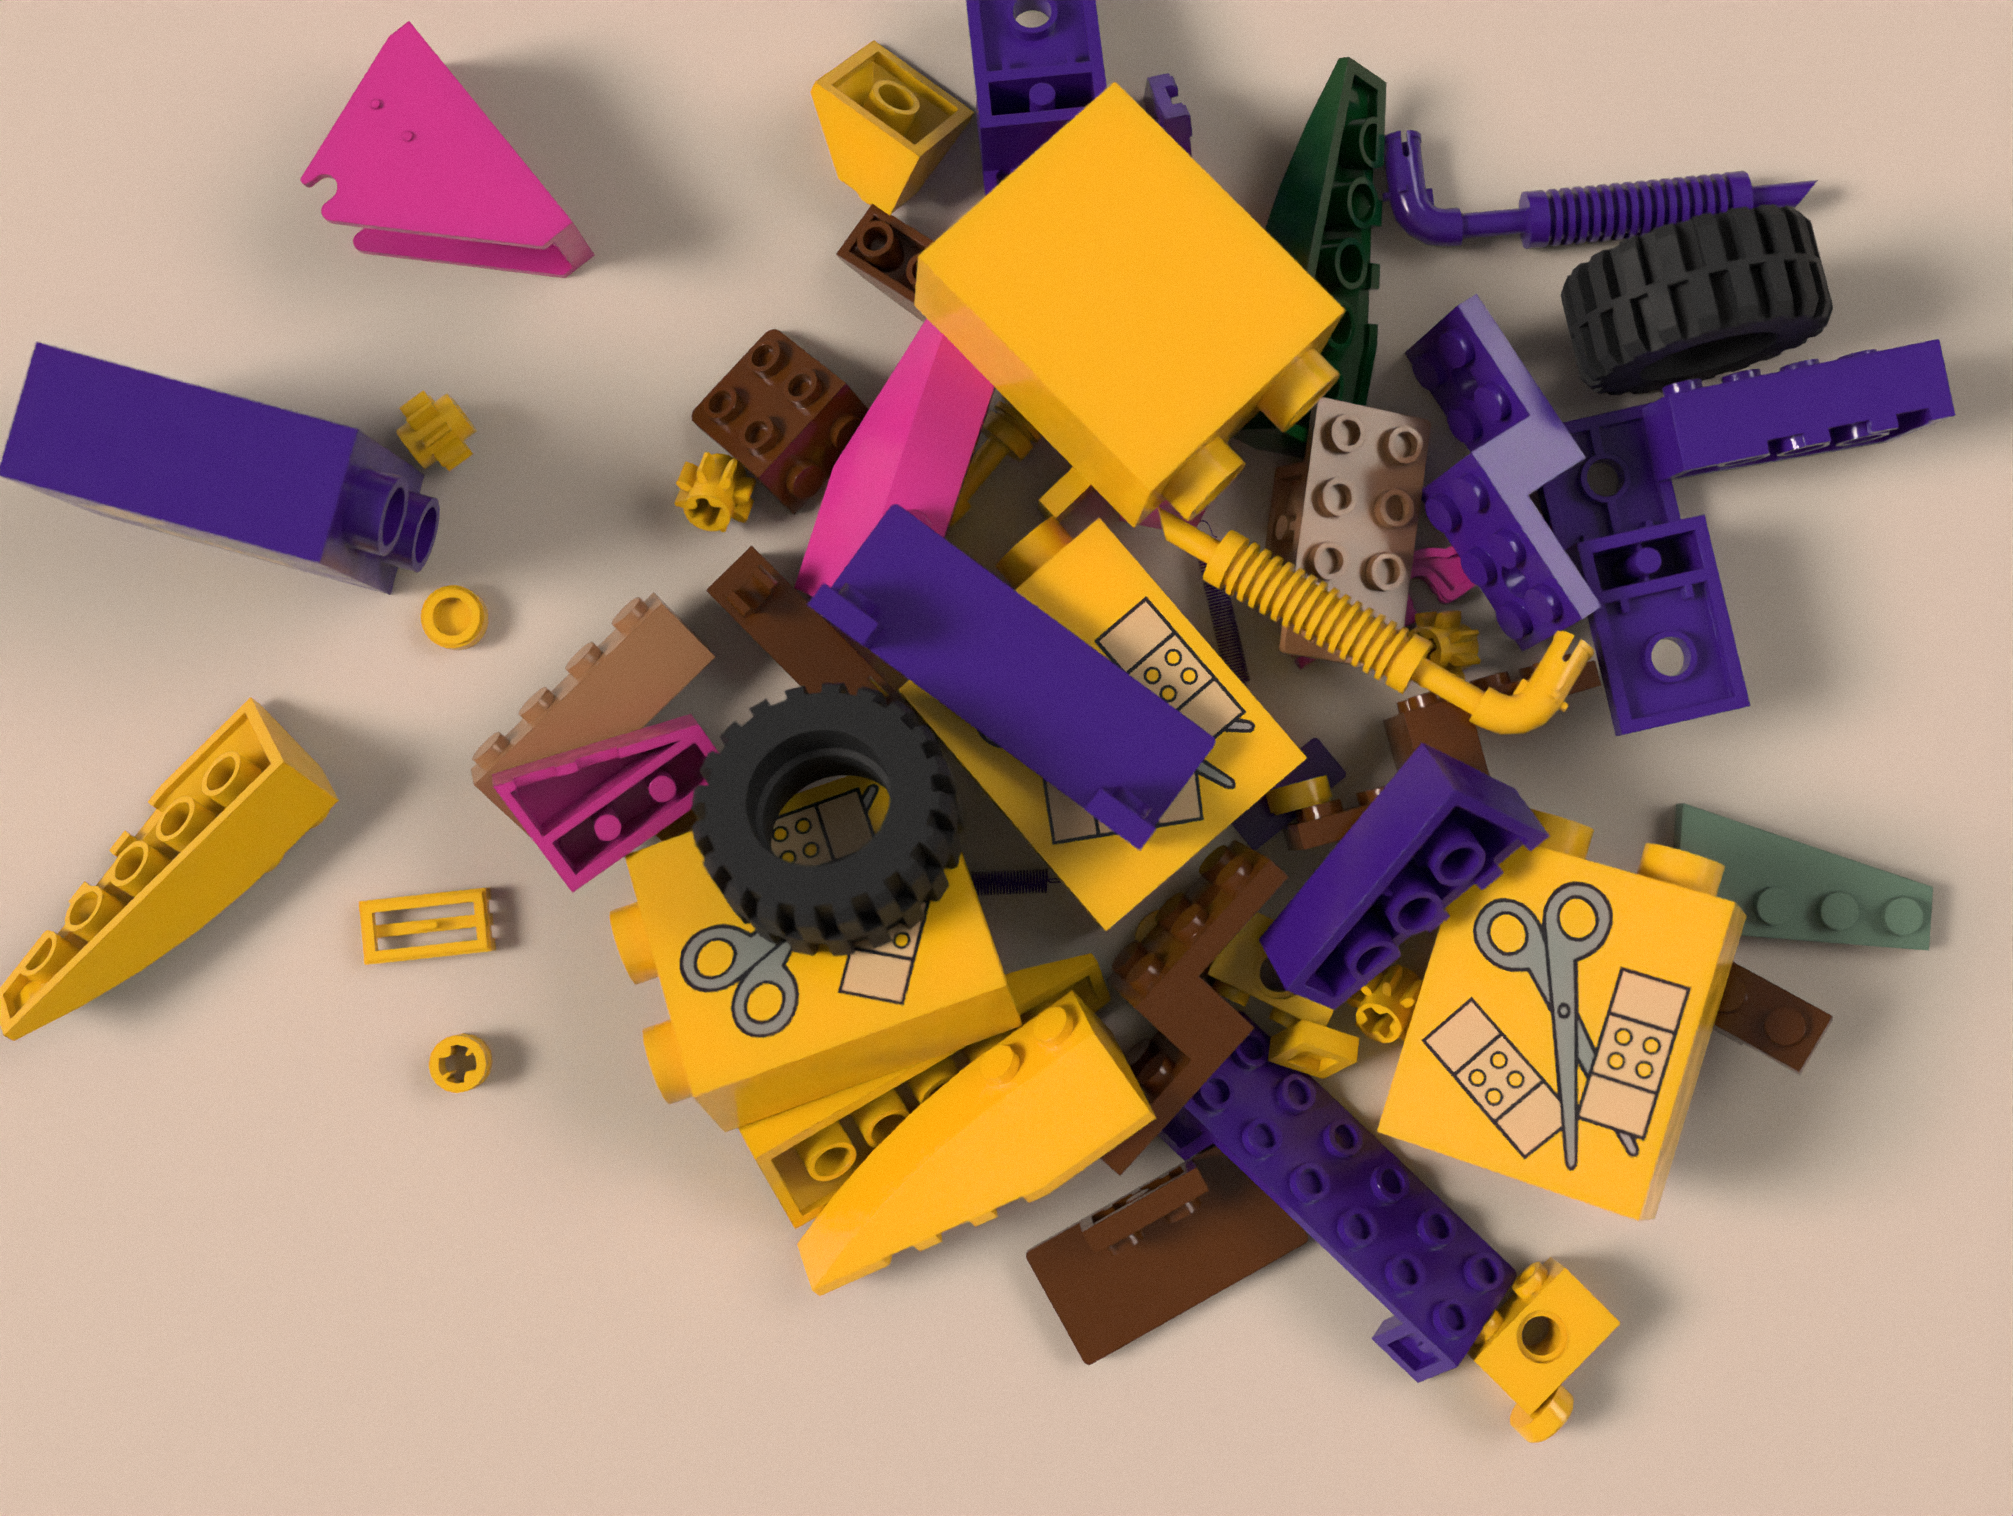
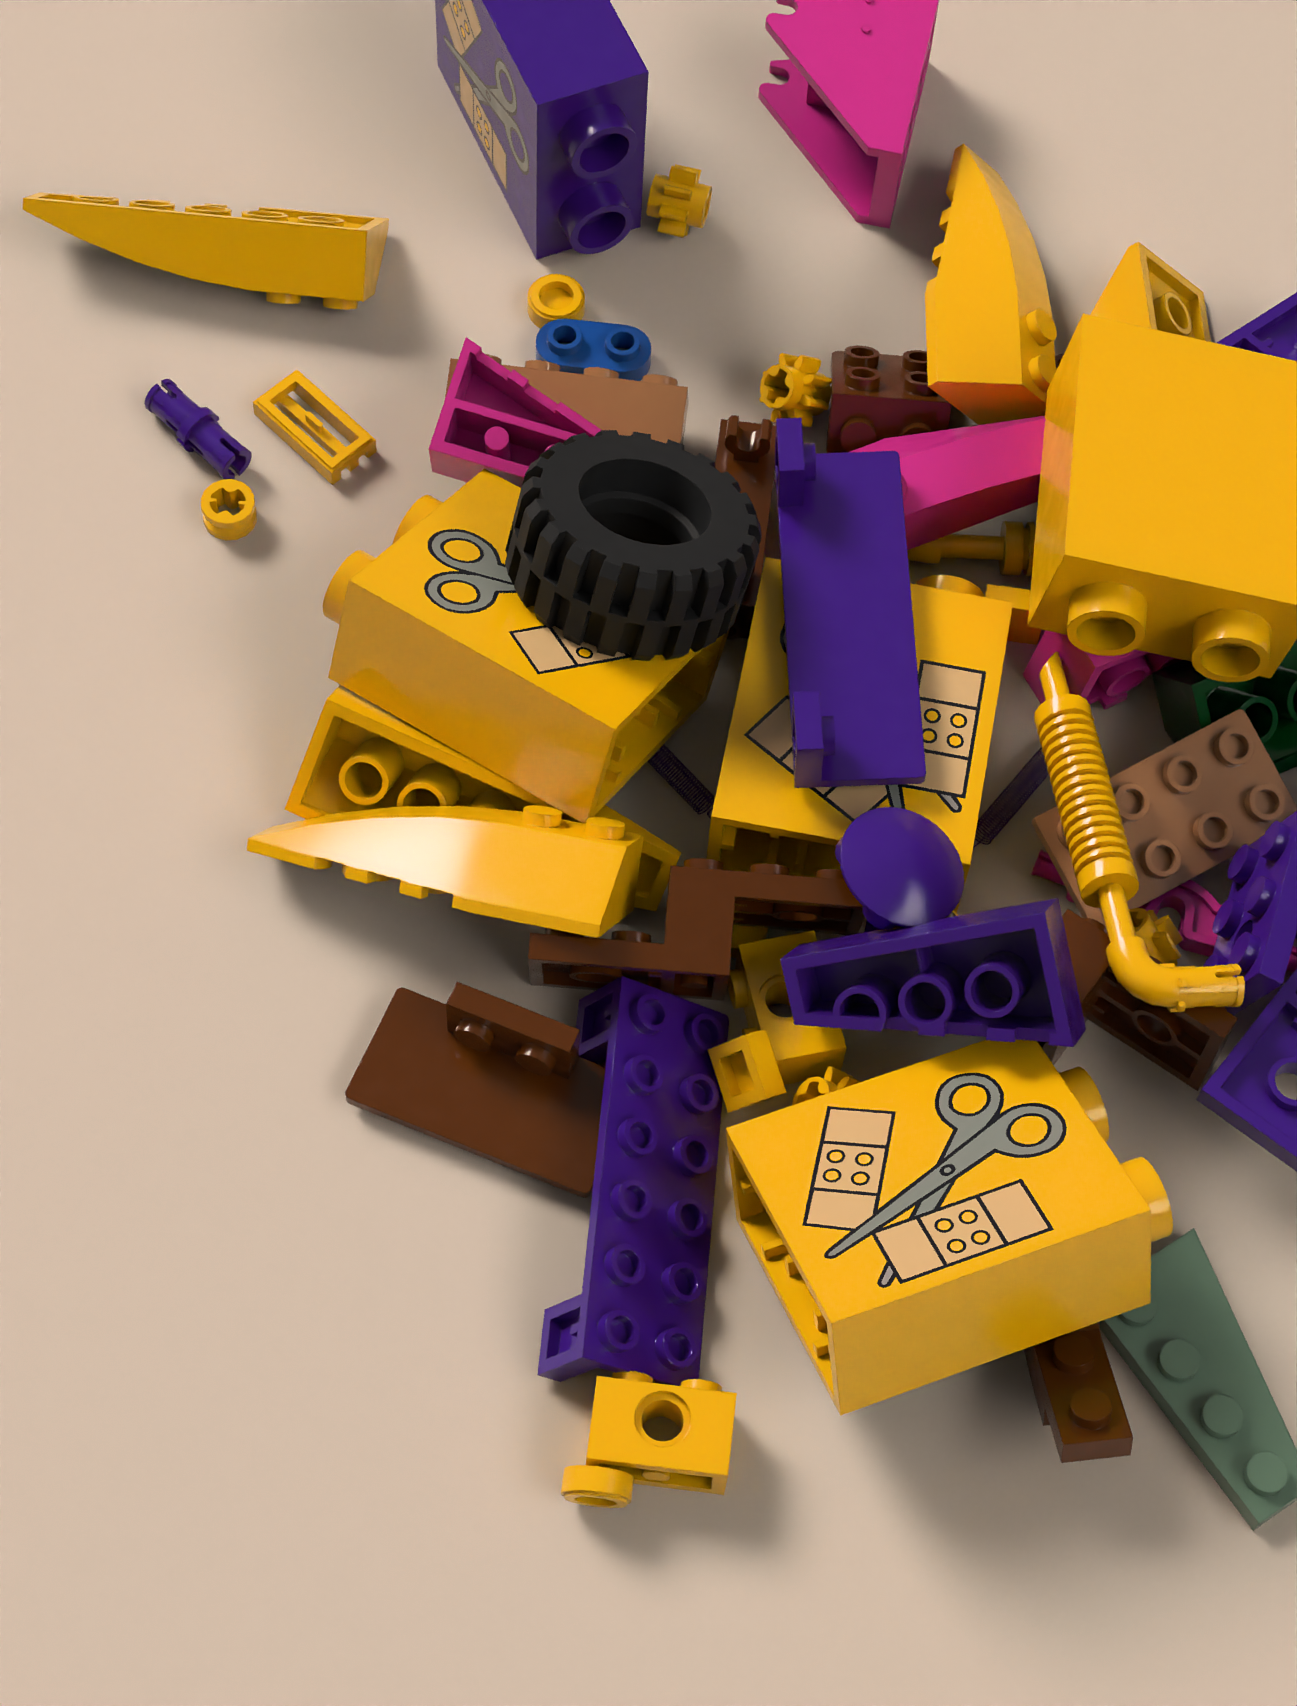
camera: 50 degrees right, 25 degrees down
(357, 1032) = (198, 429): none -> dark purple pin
(534, 630) = (594, 346): none -> blue plate
(770, 258) = (989, 303): none -> yellow wedge
(1280, 828) = (900, 868): none -> dark purple dish

